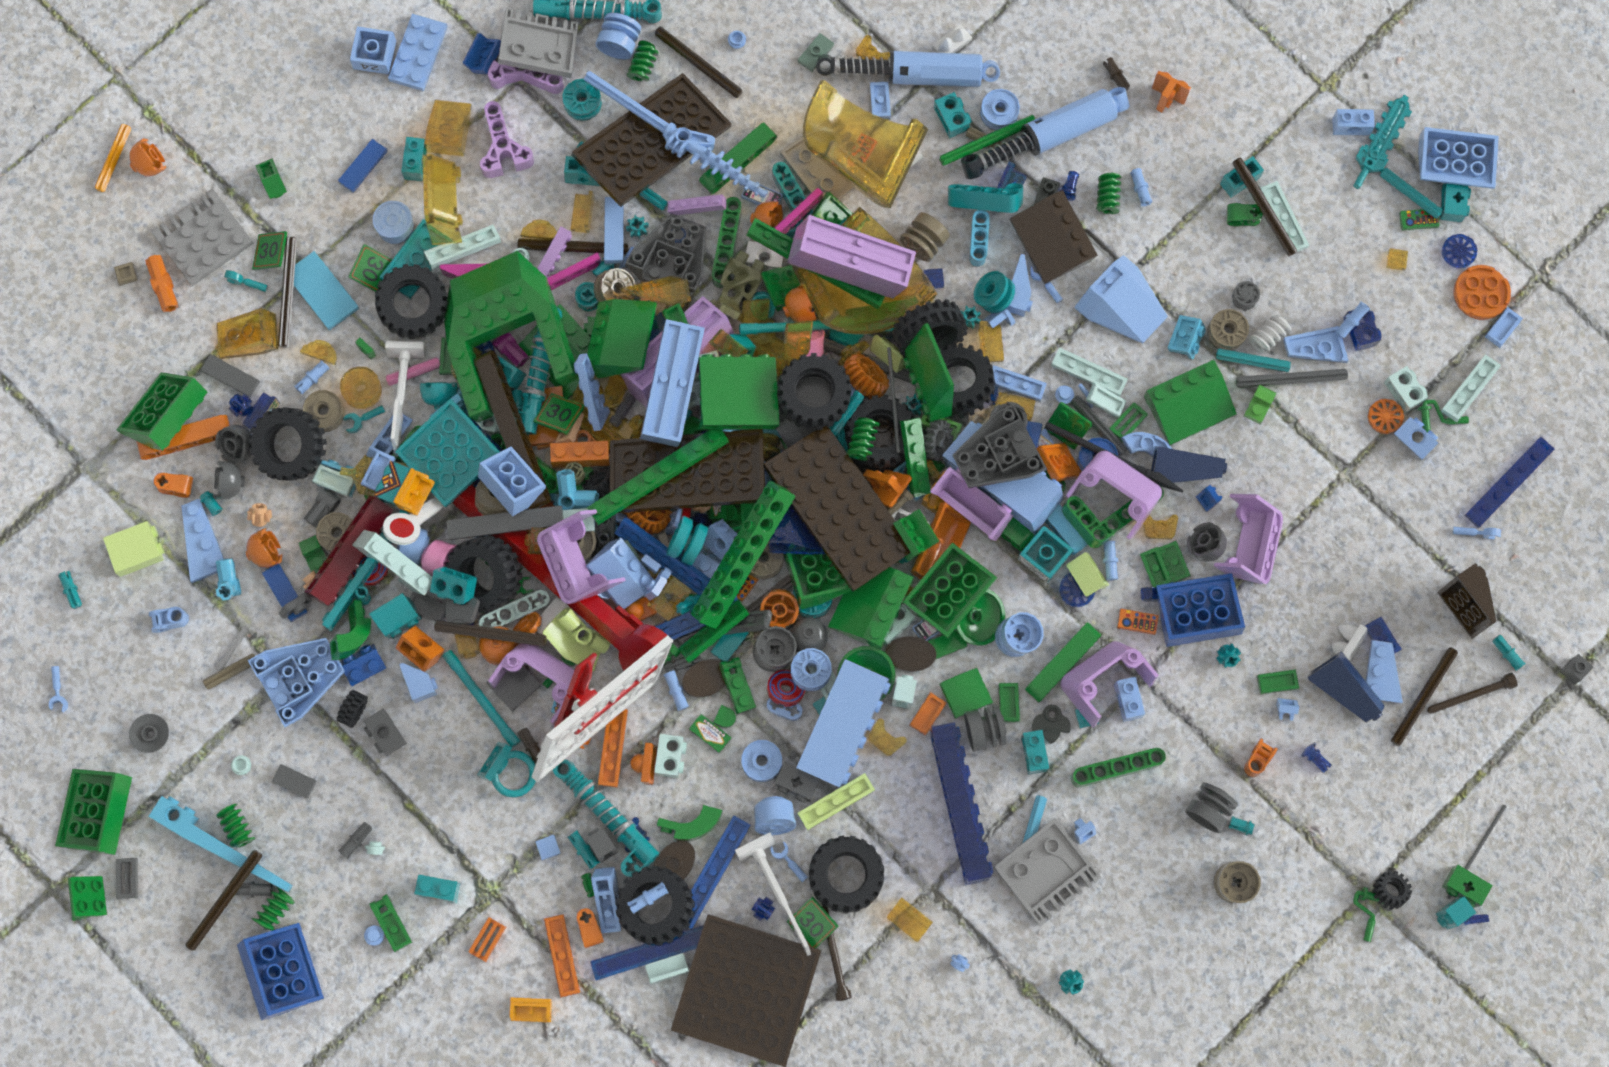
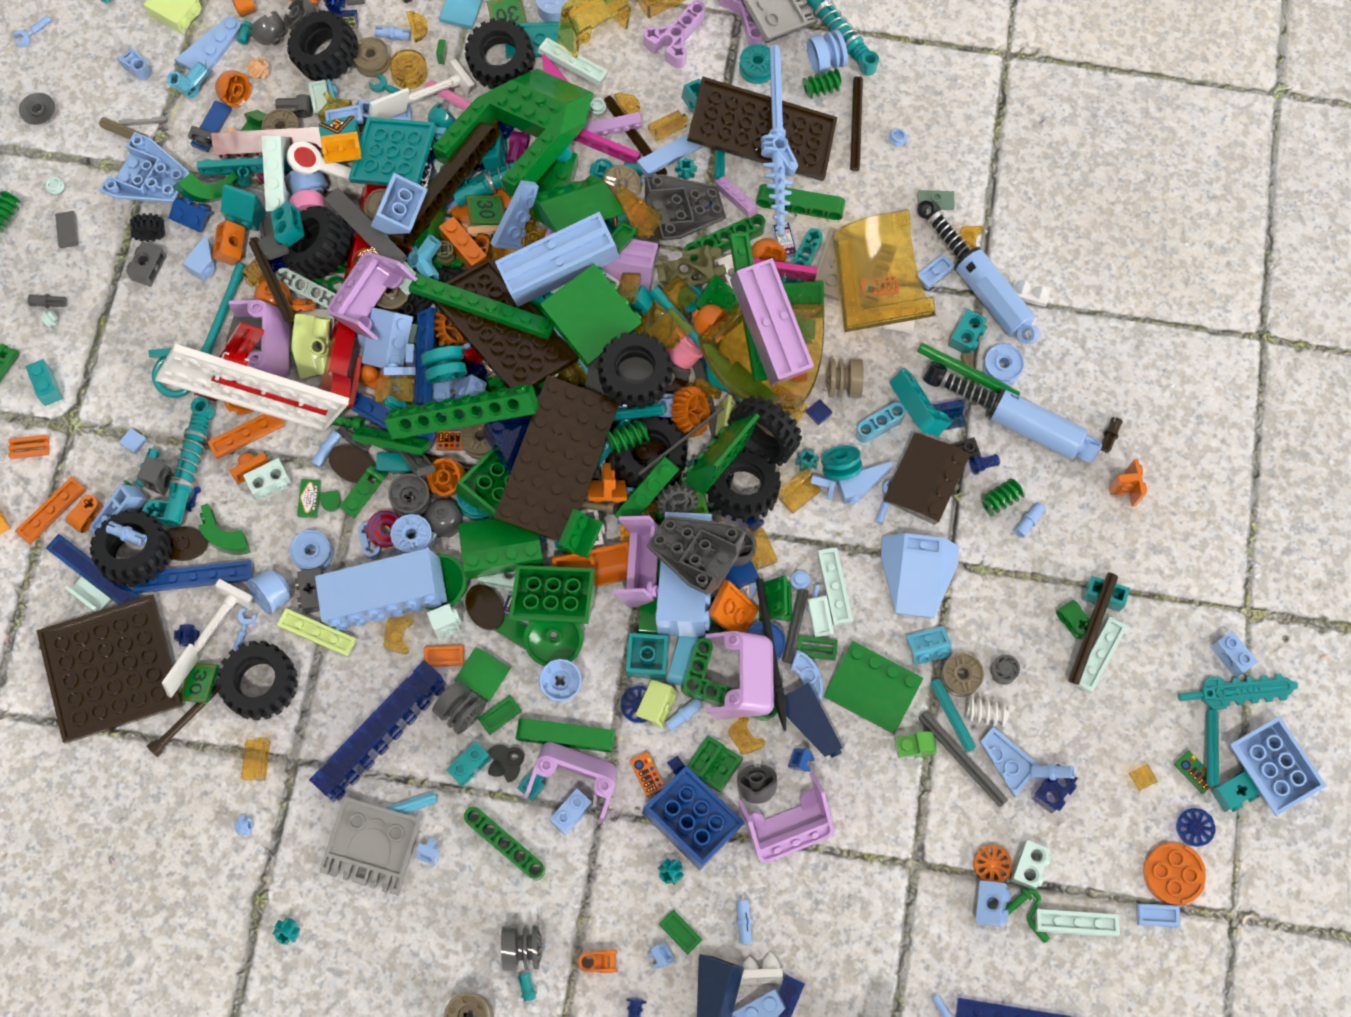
camera: 55 degrees right, 5 degrees down
(1018, 383) = (781, 537): light blue tile -> none
(1303, 628) = (744, 922): none -> light blue pin

